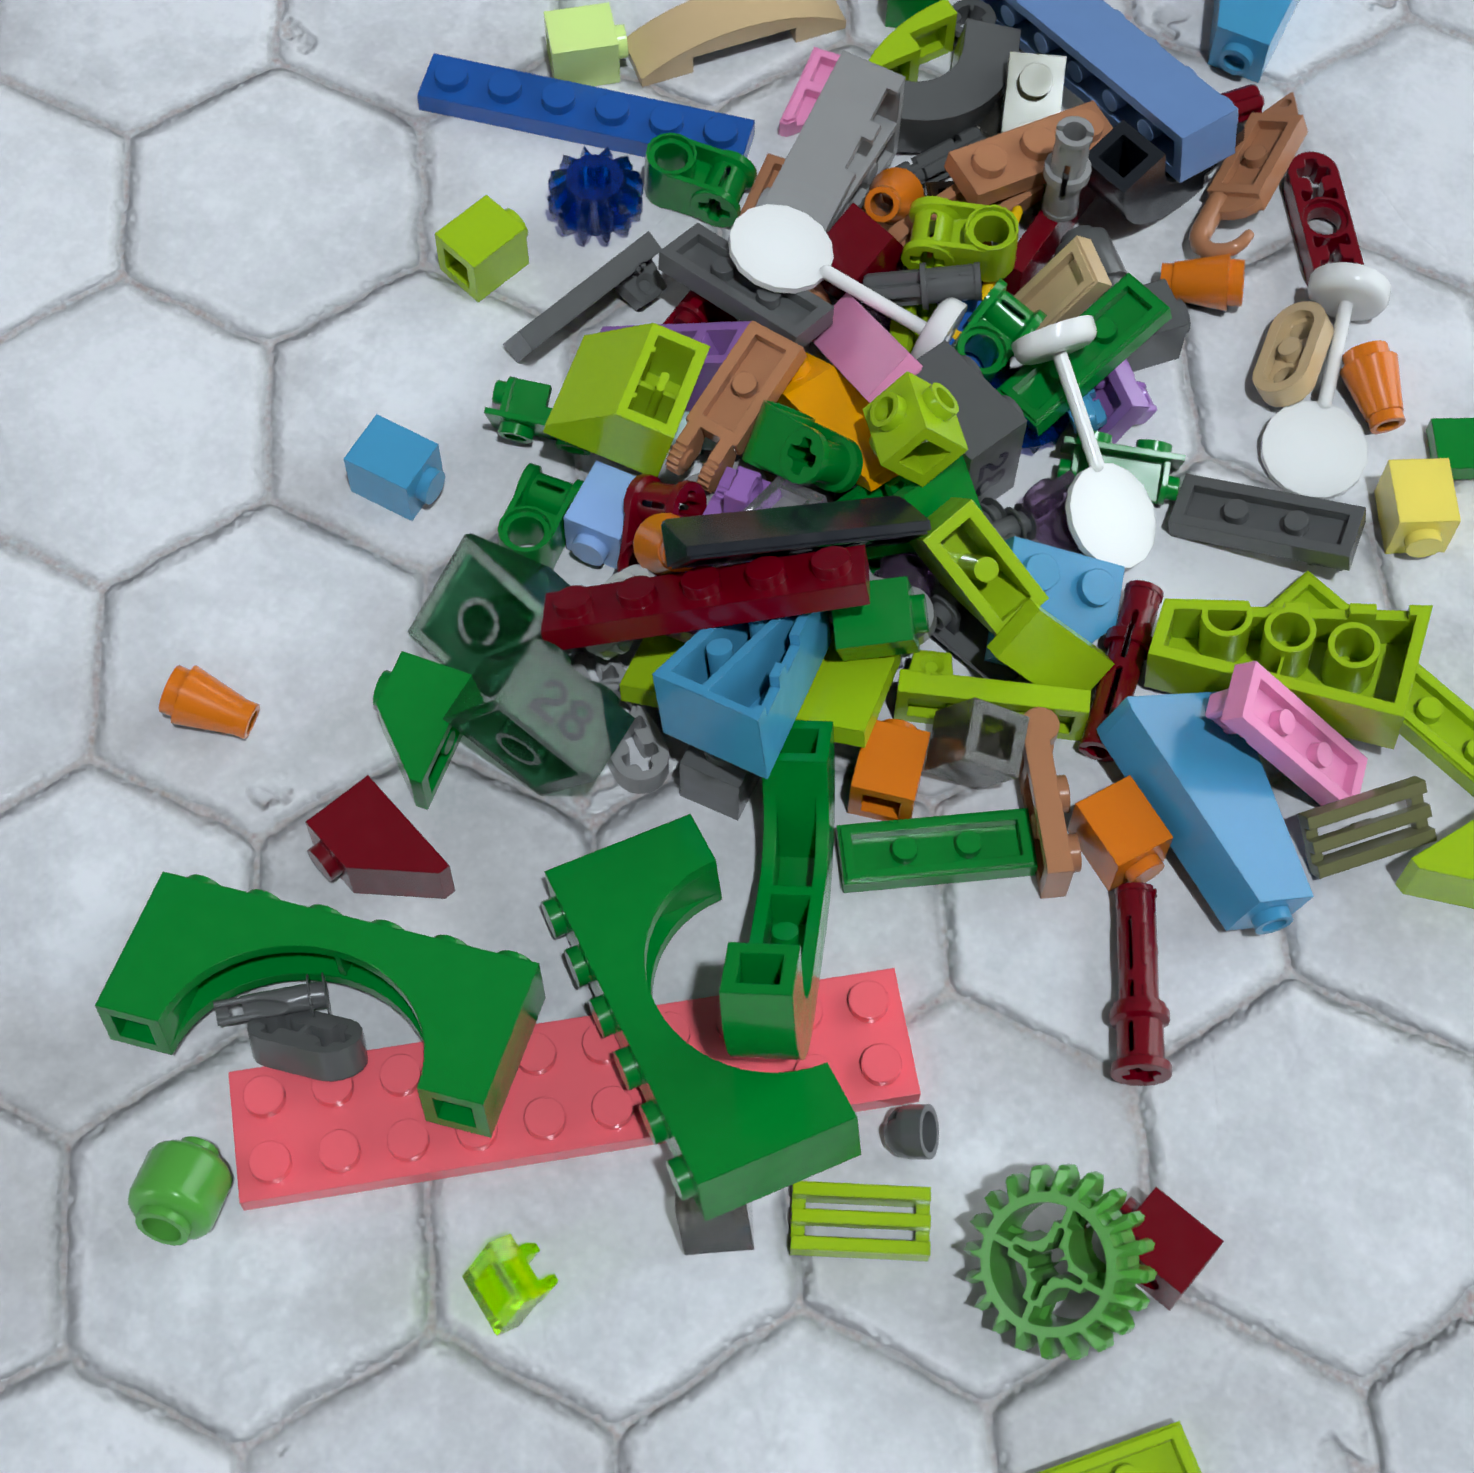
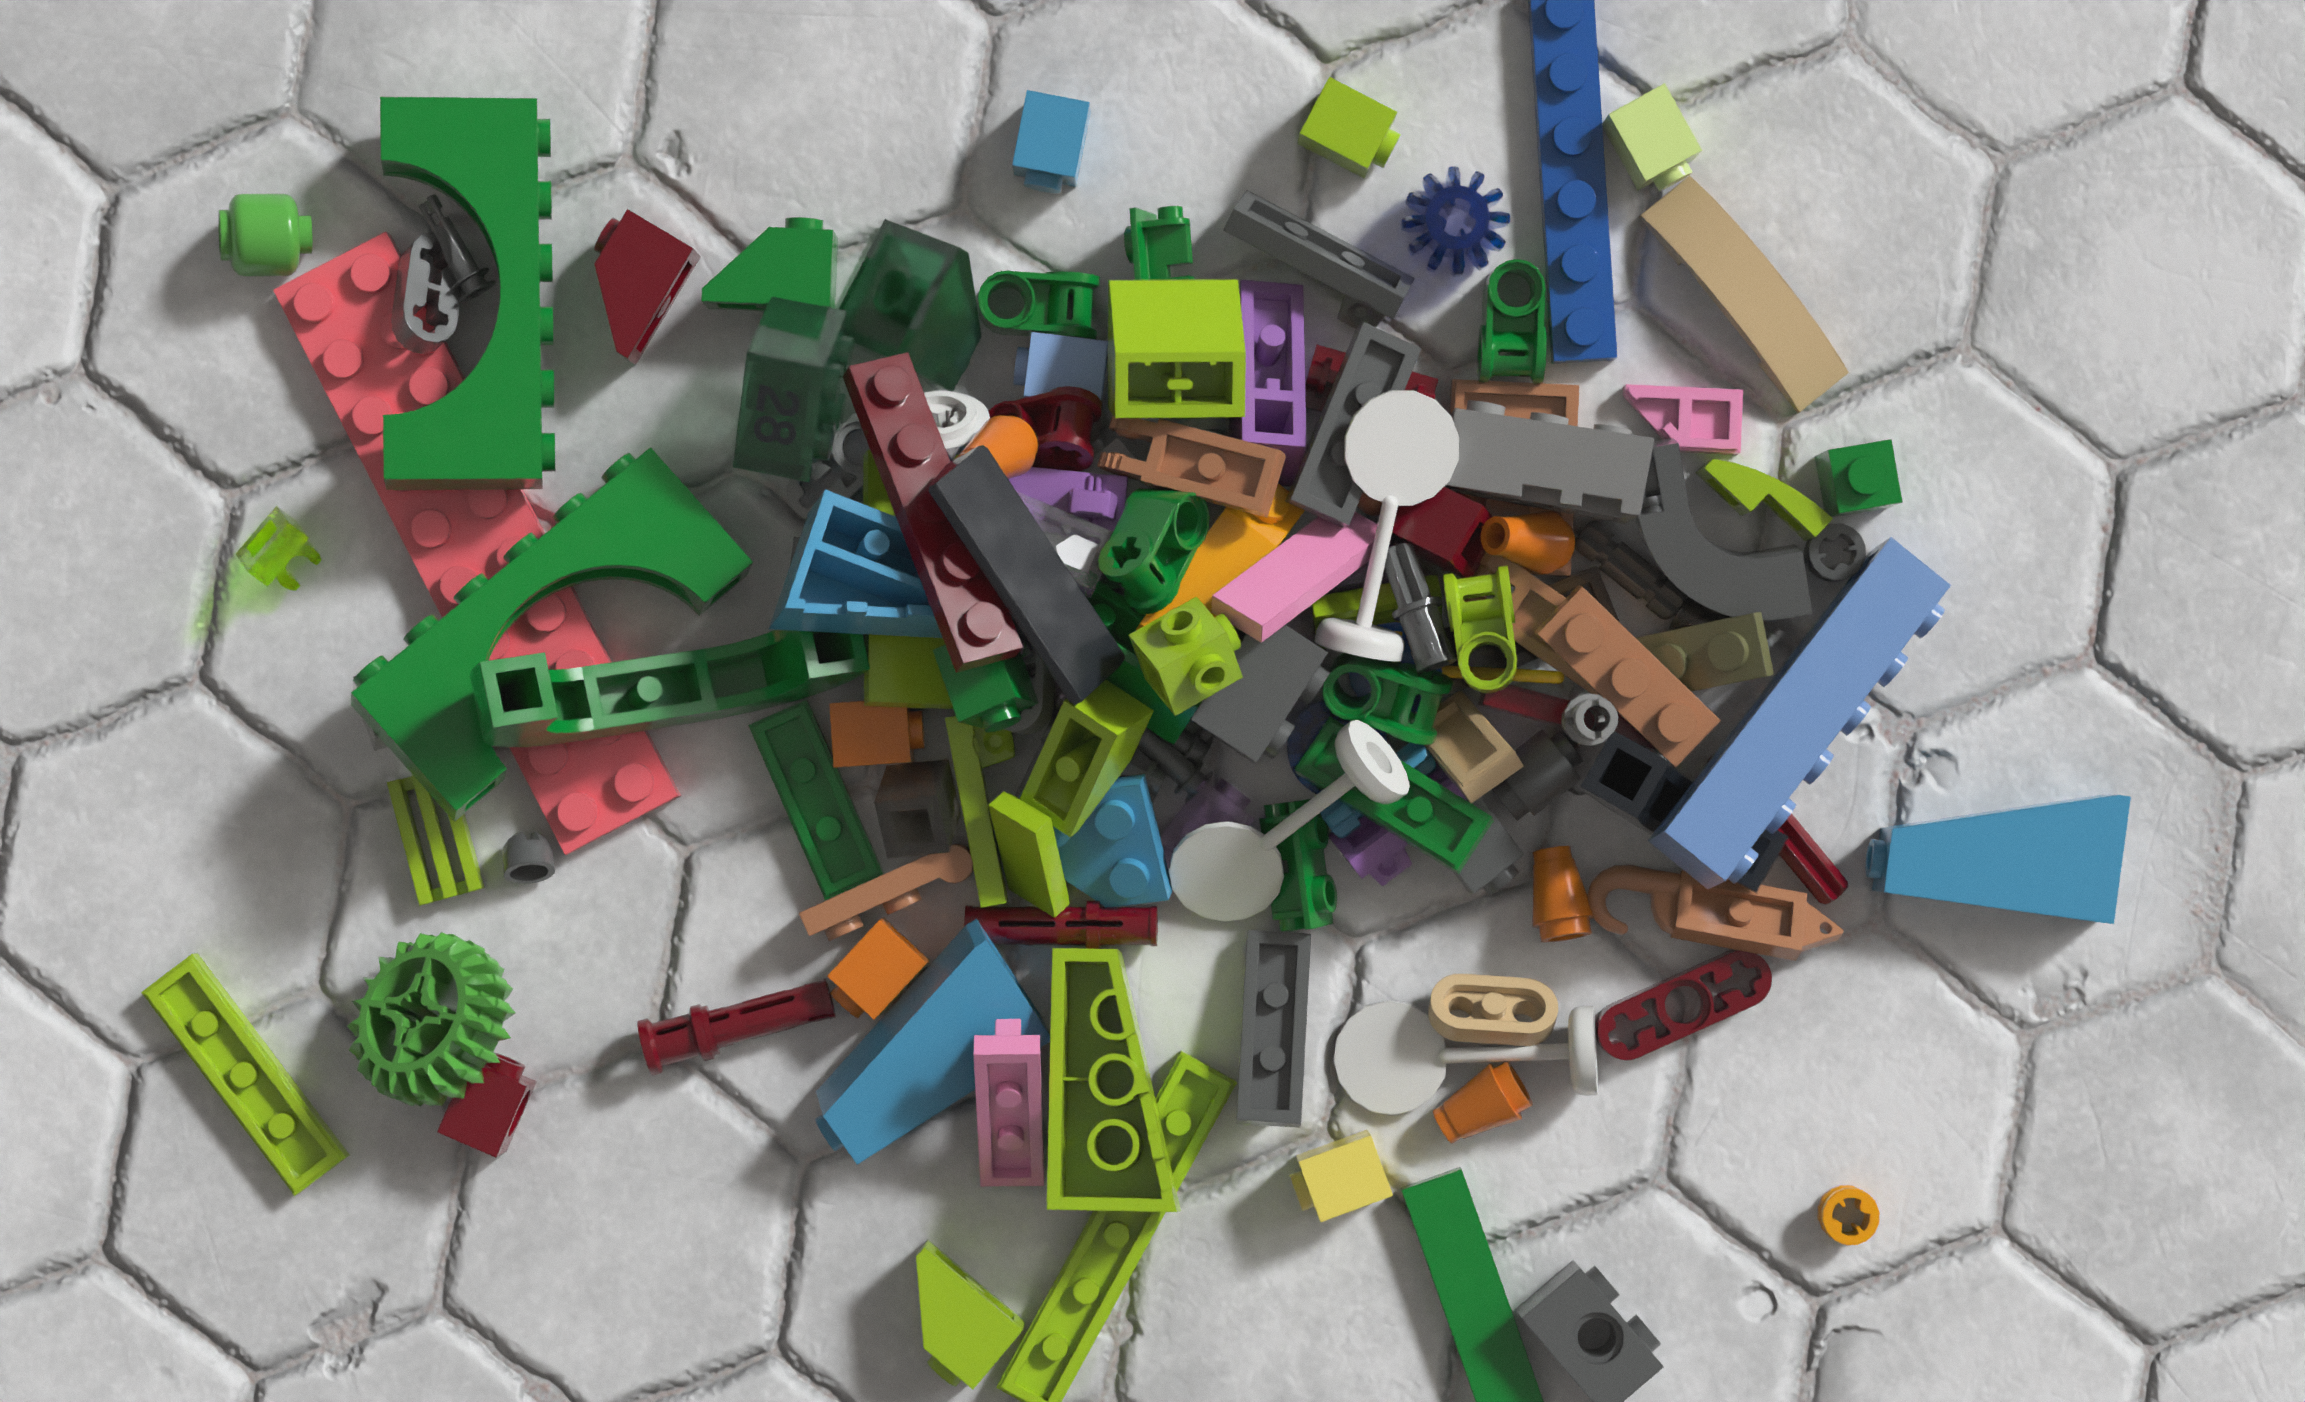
camera: 70 degrees right, 25 degrees up
(205, 703) = (736, 61): orange cone -> none
(1415, 813) = (963, 1200): olive tile -> none

